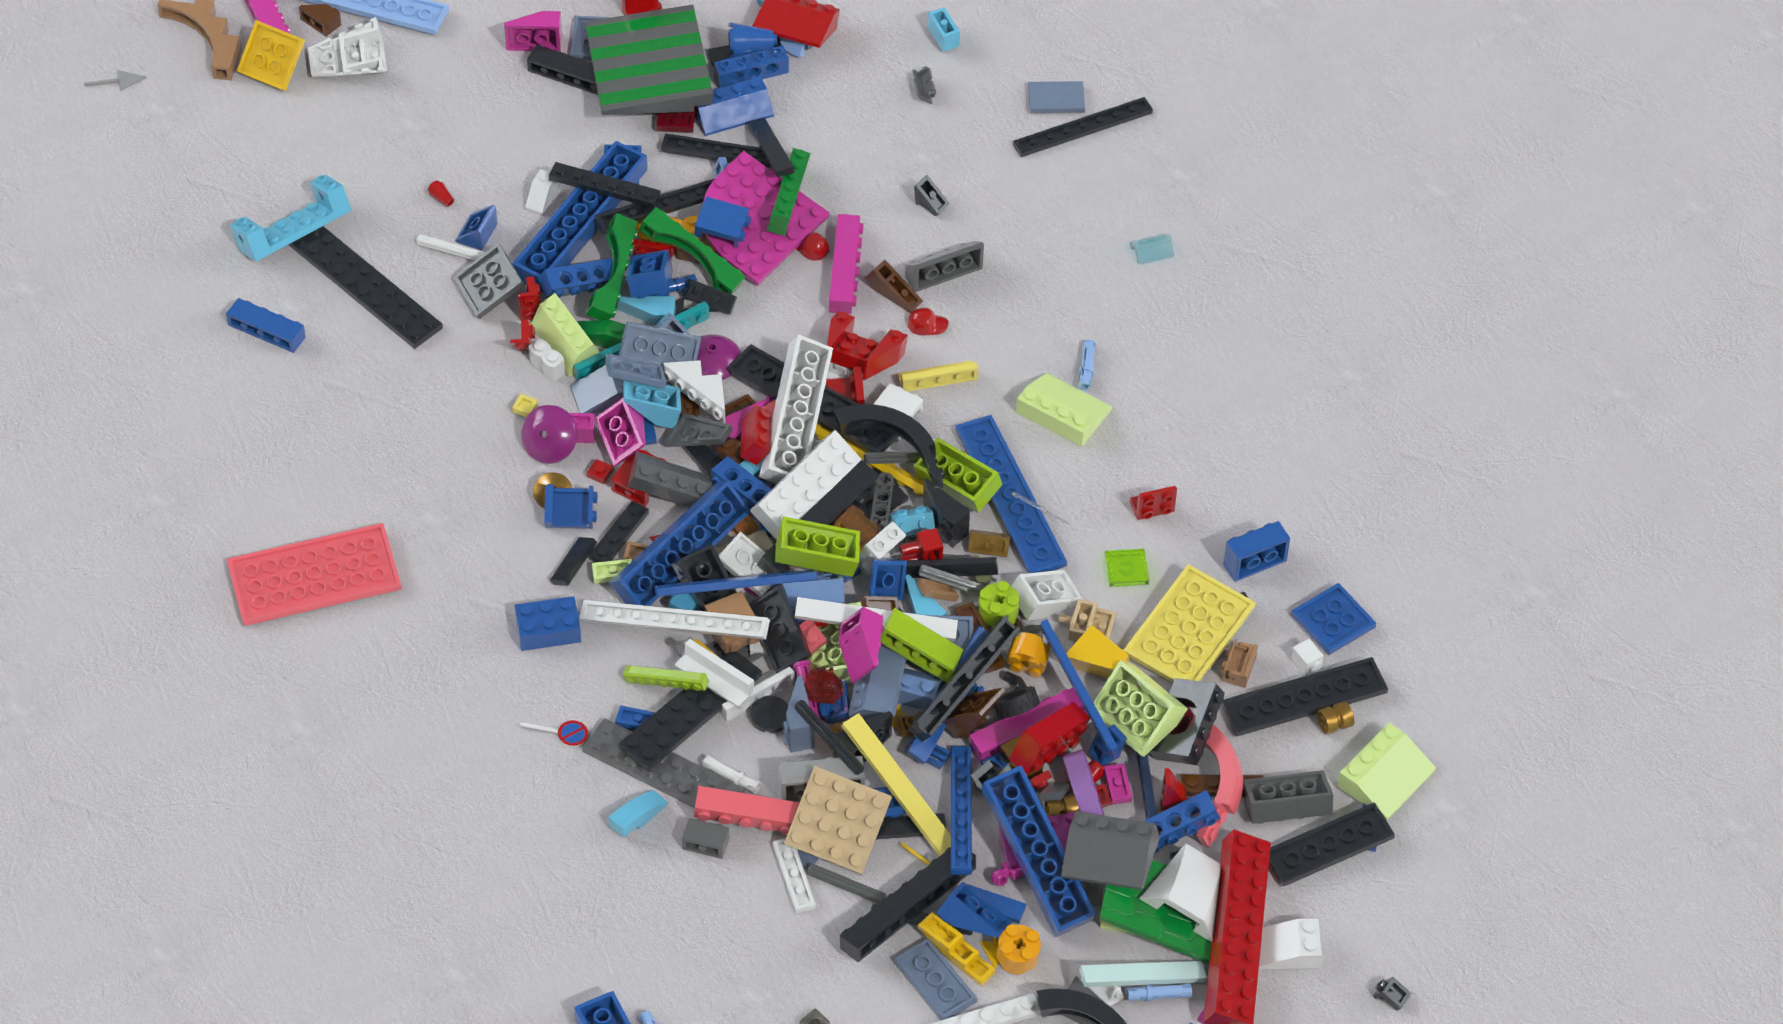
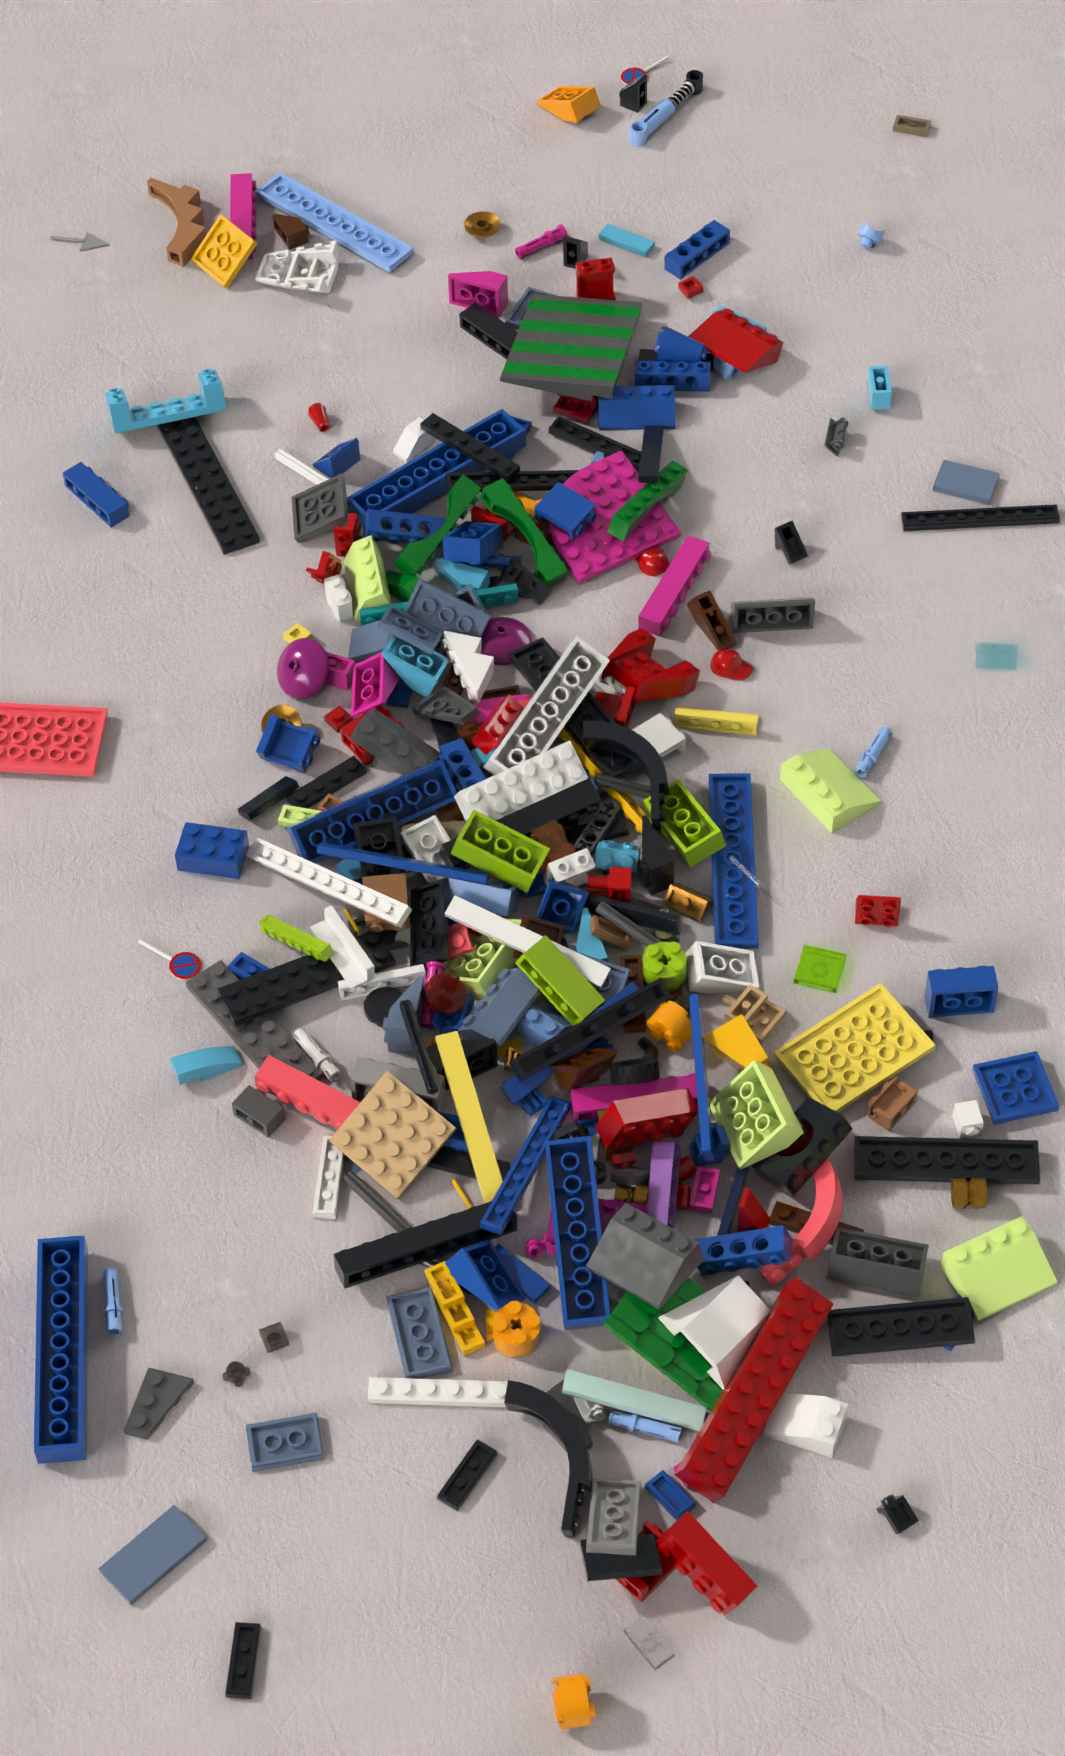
camera: 25 degrees right, 0 degrees up
(861, 642) = (496, 959): dark pink slope -> none

